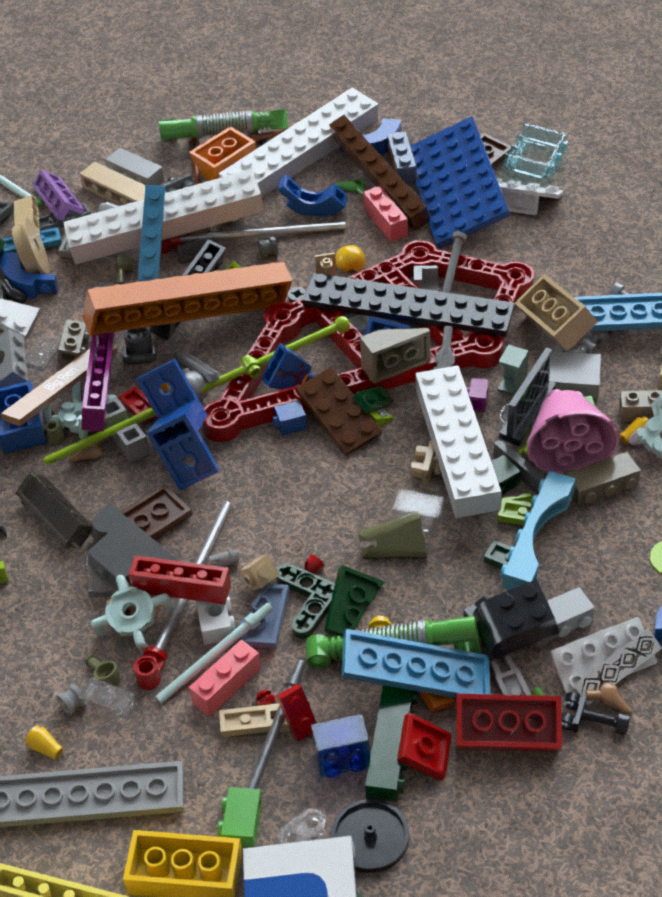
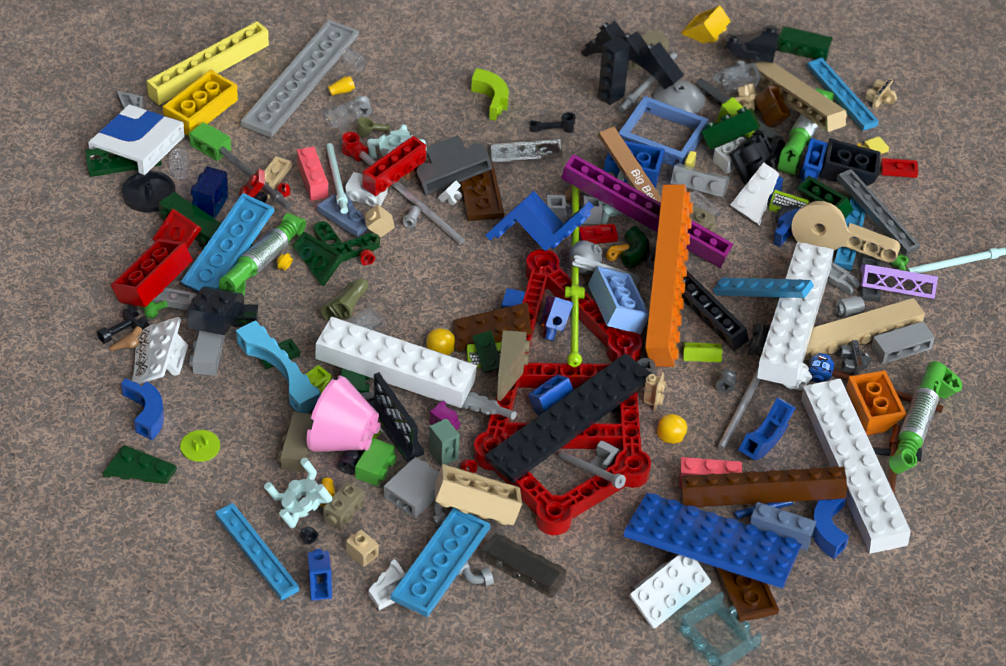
camera: 115 degrees right, 0 degrees up
(136, 367) = (638, 250): none -> dark green cylinder
(166, 540) = (450, 193): none -> white tile
(237, 332) = (618, 300): none -> light blue brick
(381, 448) = (441, 341): none -> yellow hair
(583, 269) = (523, 565): none -> clear smoke brick

